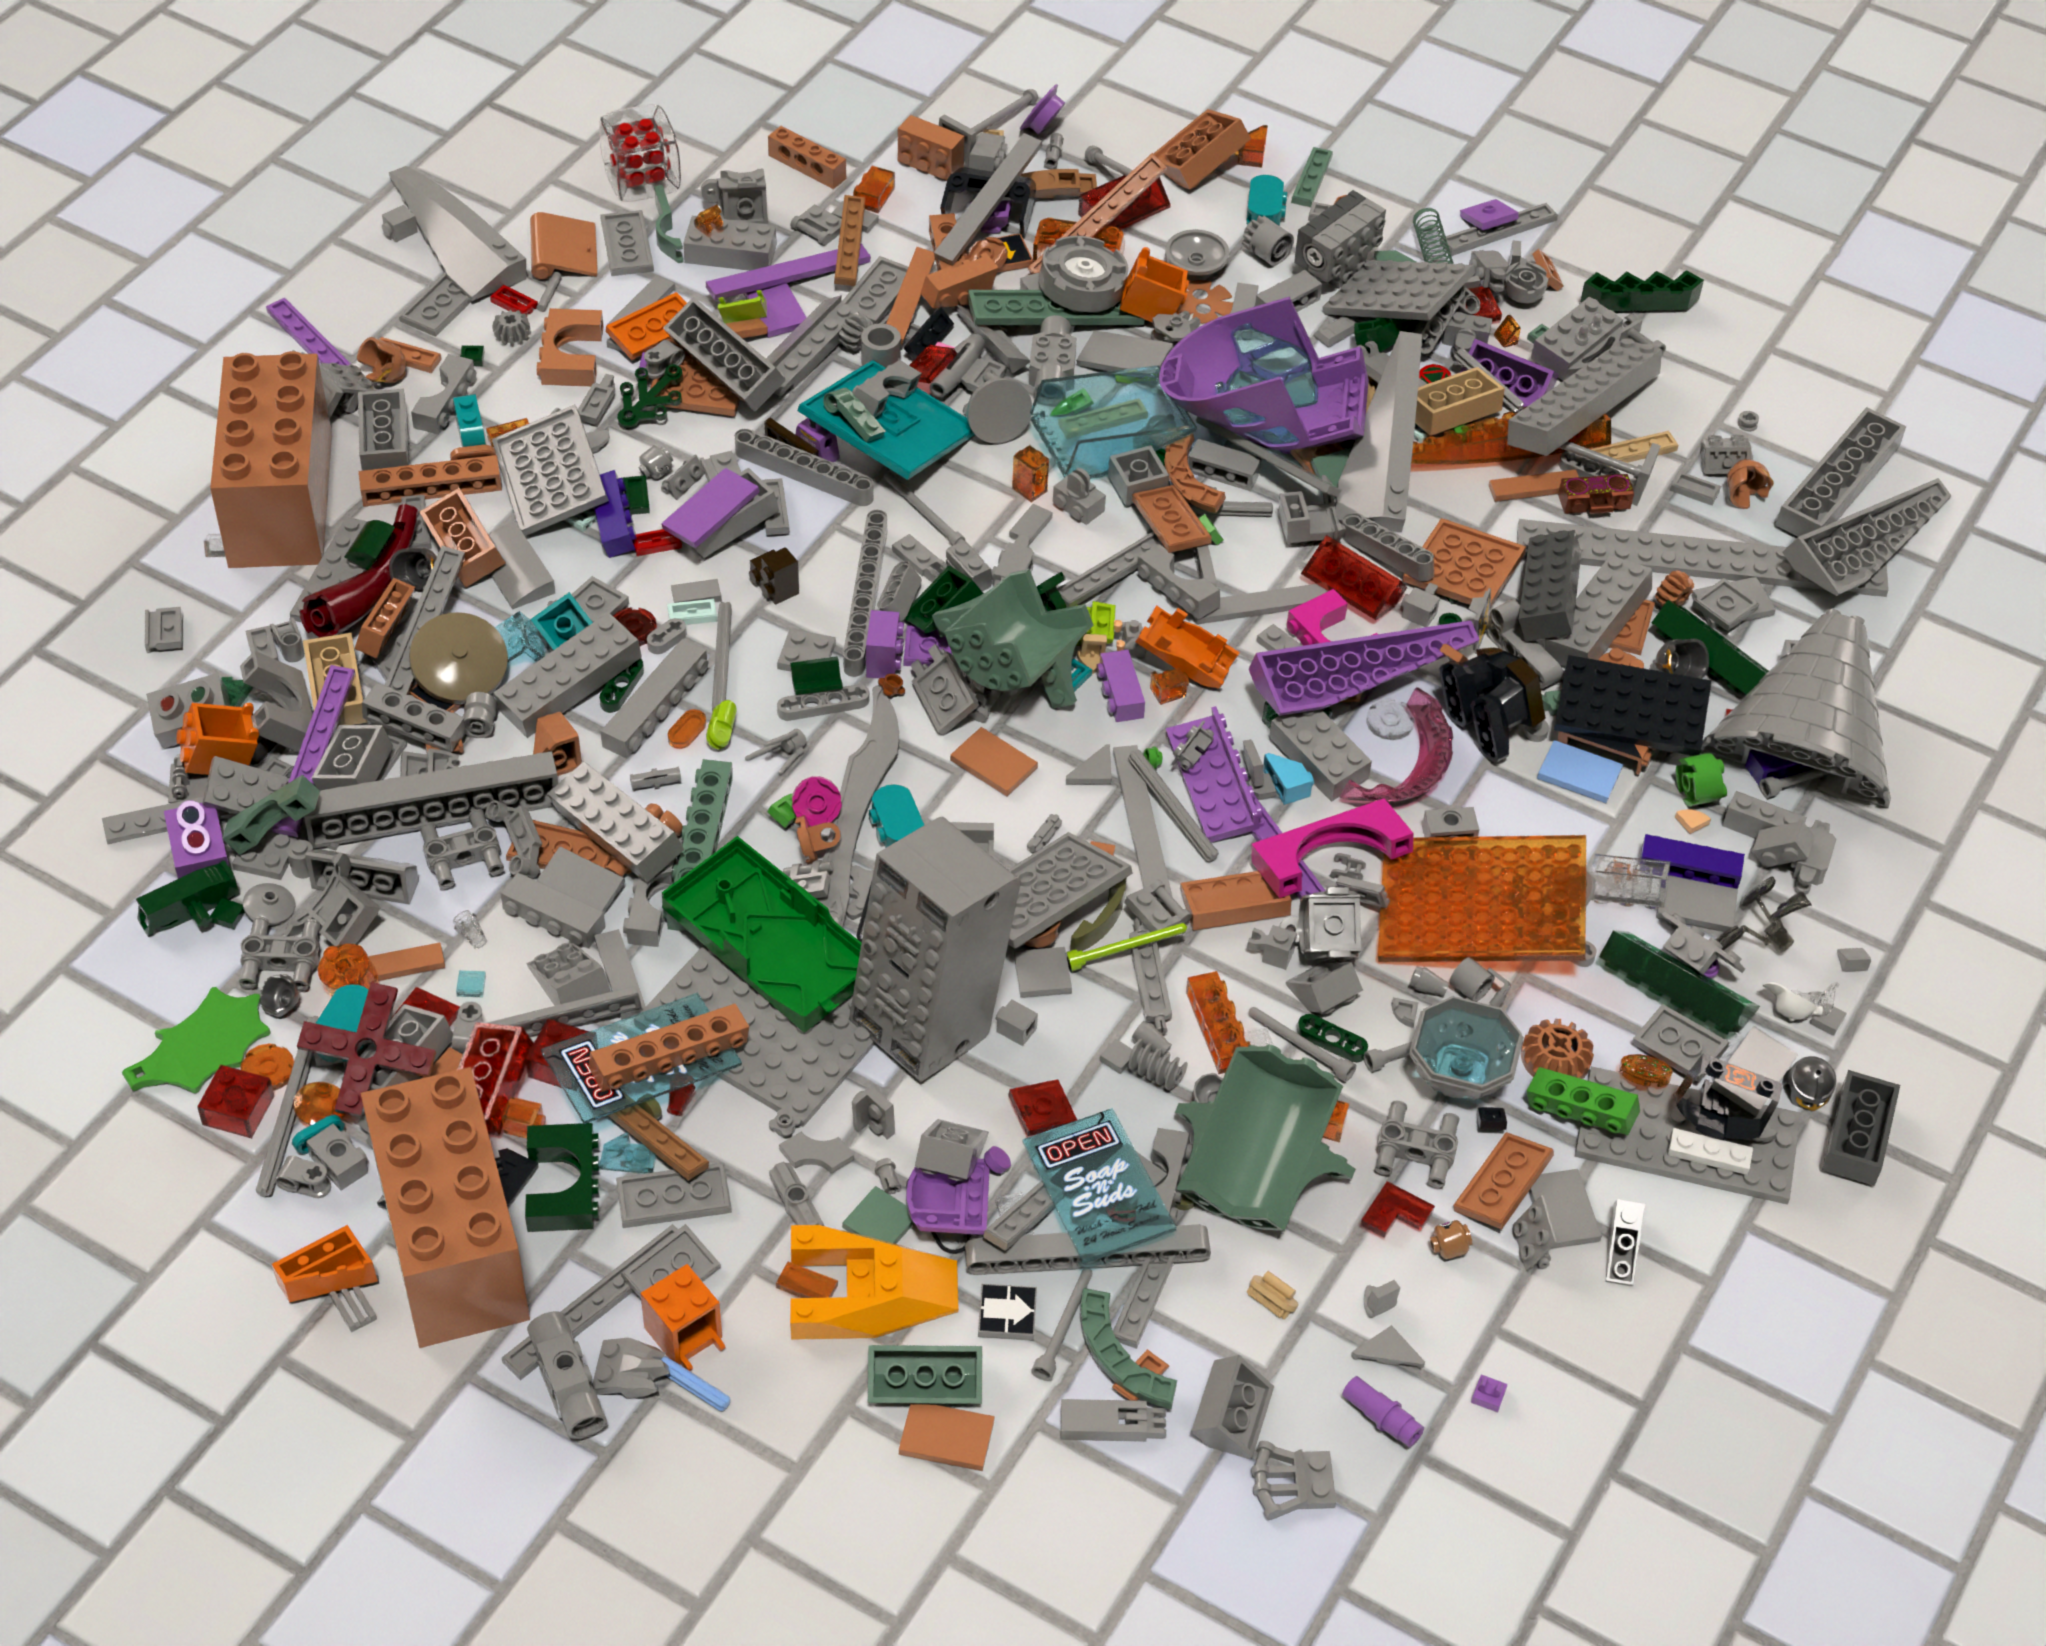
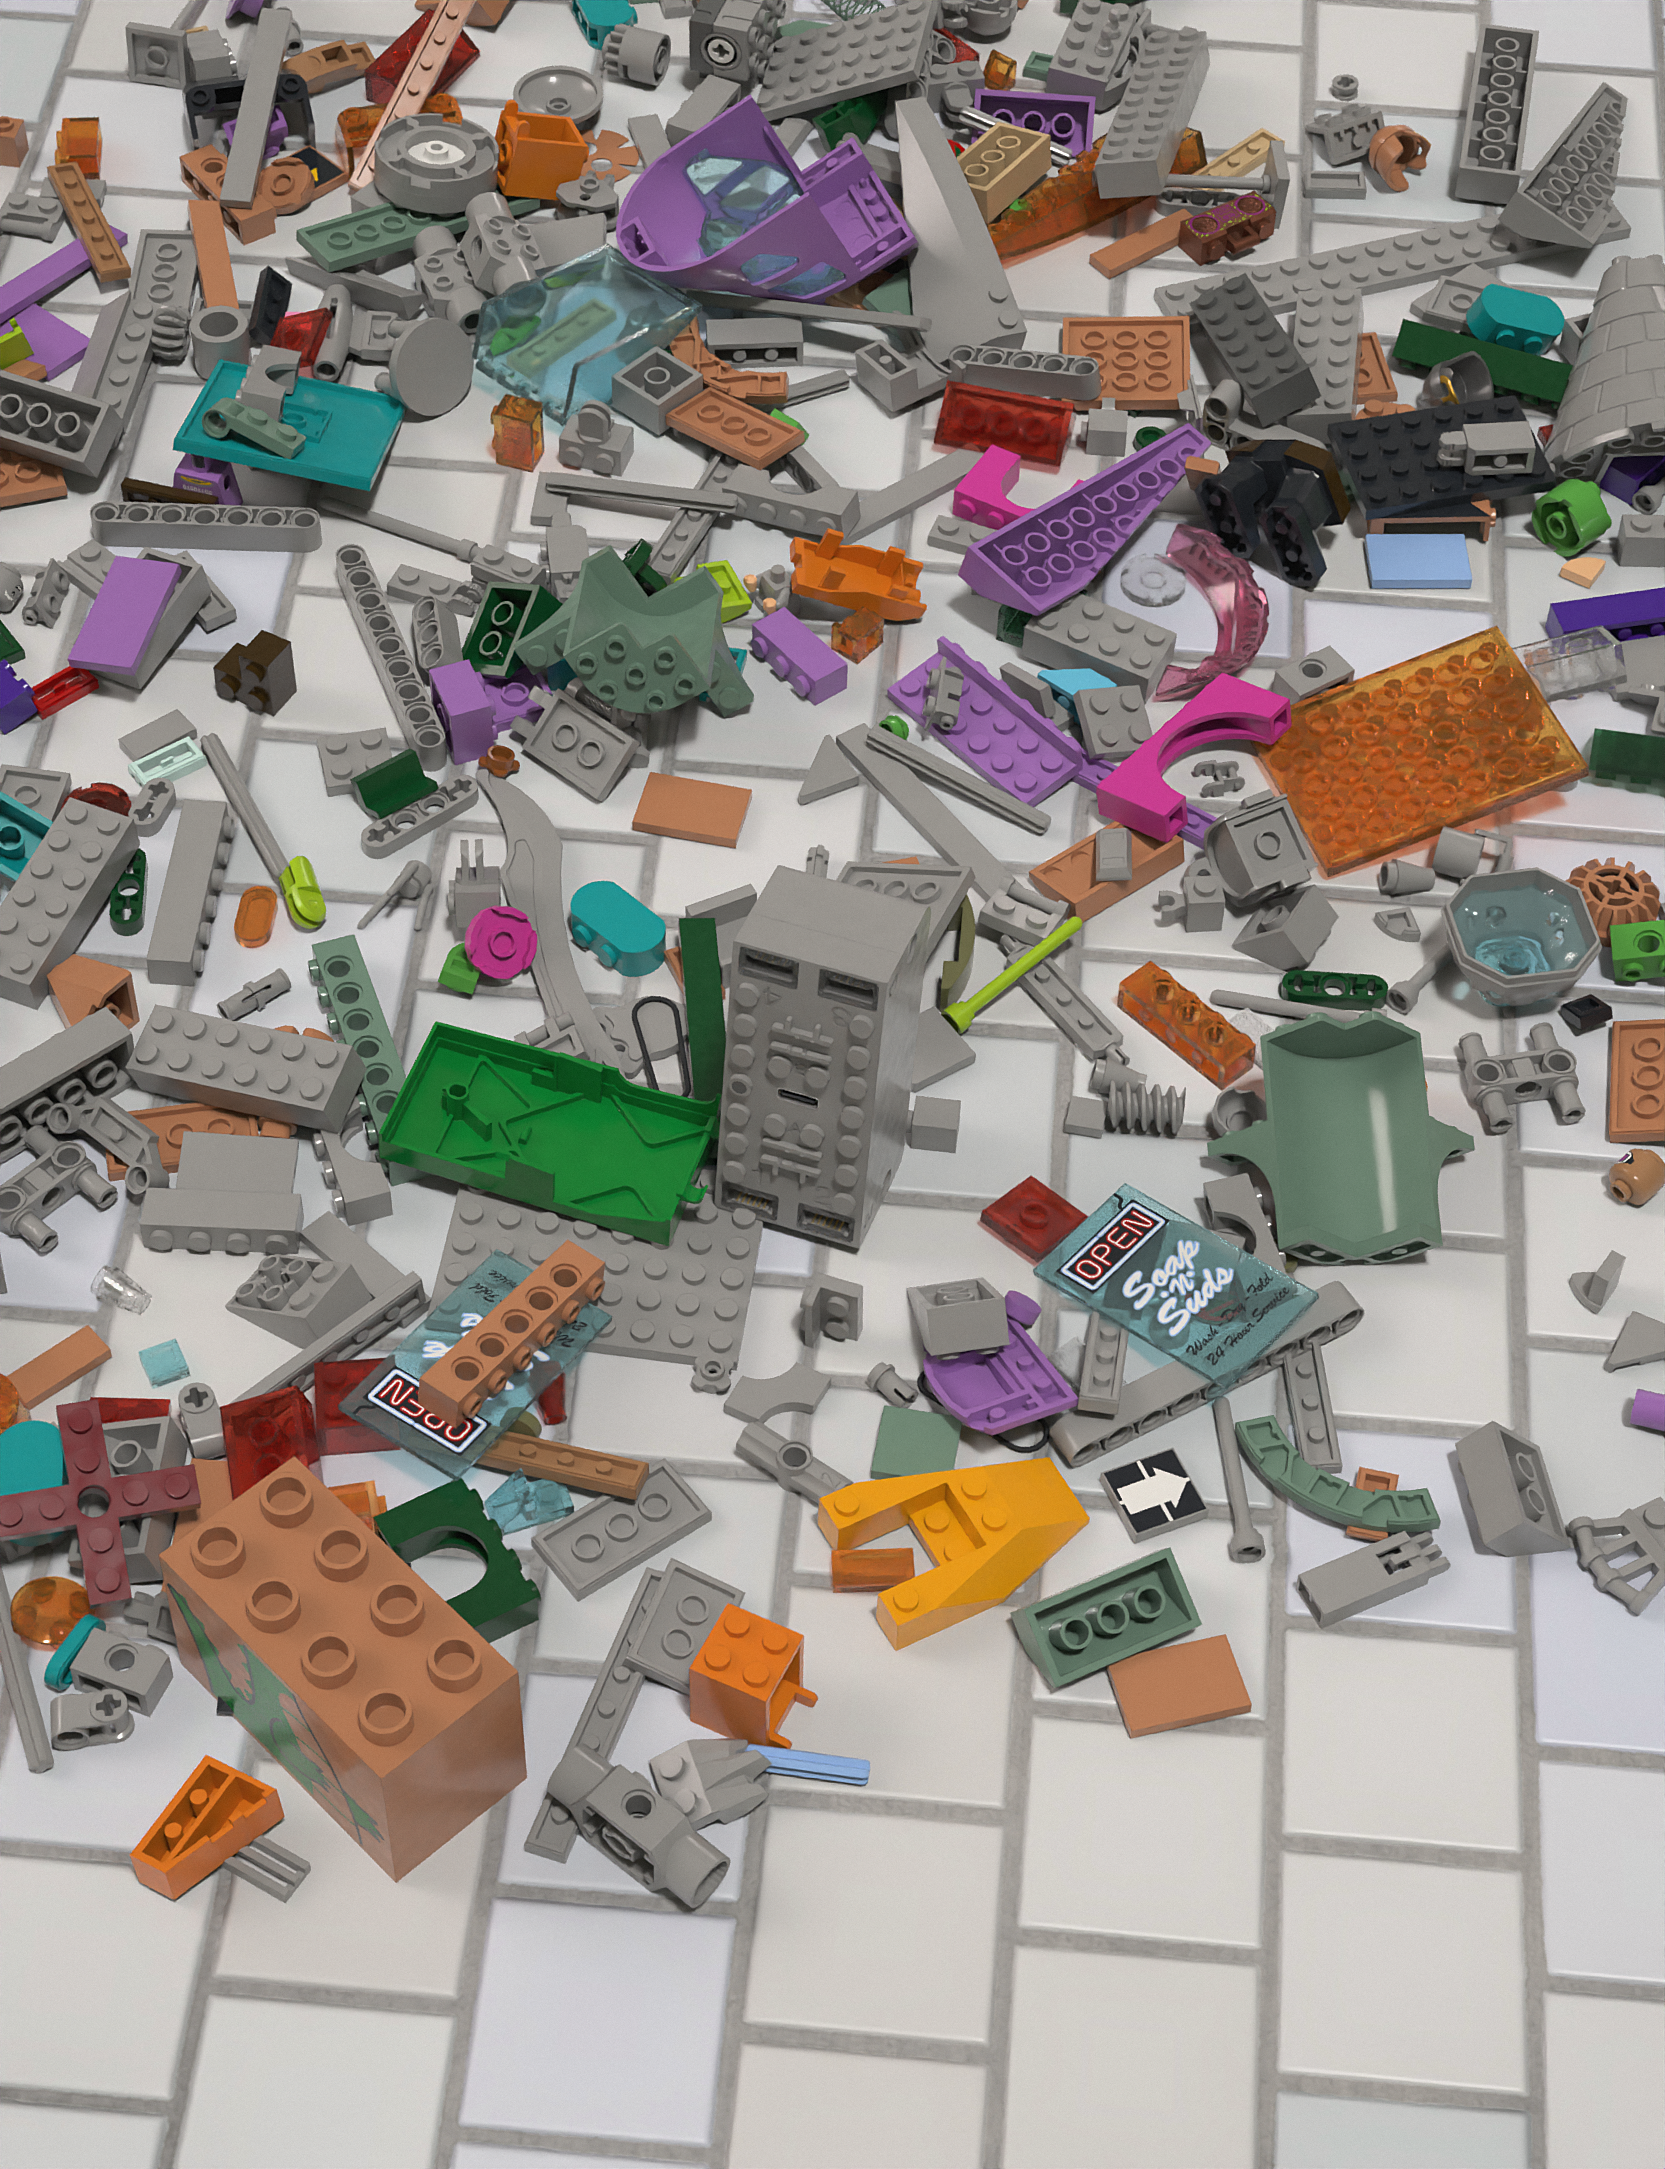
camera: 25 degrees left, 0 degrees up
(811, 839) = (523, 993): nougat tile -> none
(822, 758) = (473, 886): none -> light grey brick
(930, 147) = (128, 73): nougat brick -> none
(950, 286) = (270, 232): nougat wedge -> none
(1085, 541) = (642, 492): none -> light grey axle
(1088, 343) = (498, 247): none -> light grey brick
(1090, 650) = (737, 623): tan tile -> none
(1095, 155) = (347, 20): light grey piece -> none
(1239, 893) = (1113, 854): none -> light grey tile
(1273, 1294) = (1466, 1333): tan piece -> none
(1295, 803) = (1112, 720): none -> light grey plate
(1369, 892) = (1236, 793): light grey tile -> none
(1395, 1204) = (1541, 1162): clear red plate -> none
(1538, 732) = (1335, 535): light grey tile -> none
(1661, 711) = (1489, 448): none -> light grey hinge
(1675, 587) = (1395, 304): nougat gear -> none
(1753, 627) = (1515, 319): none -> teal brick

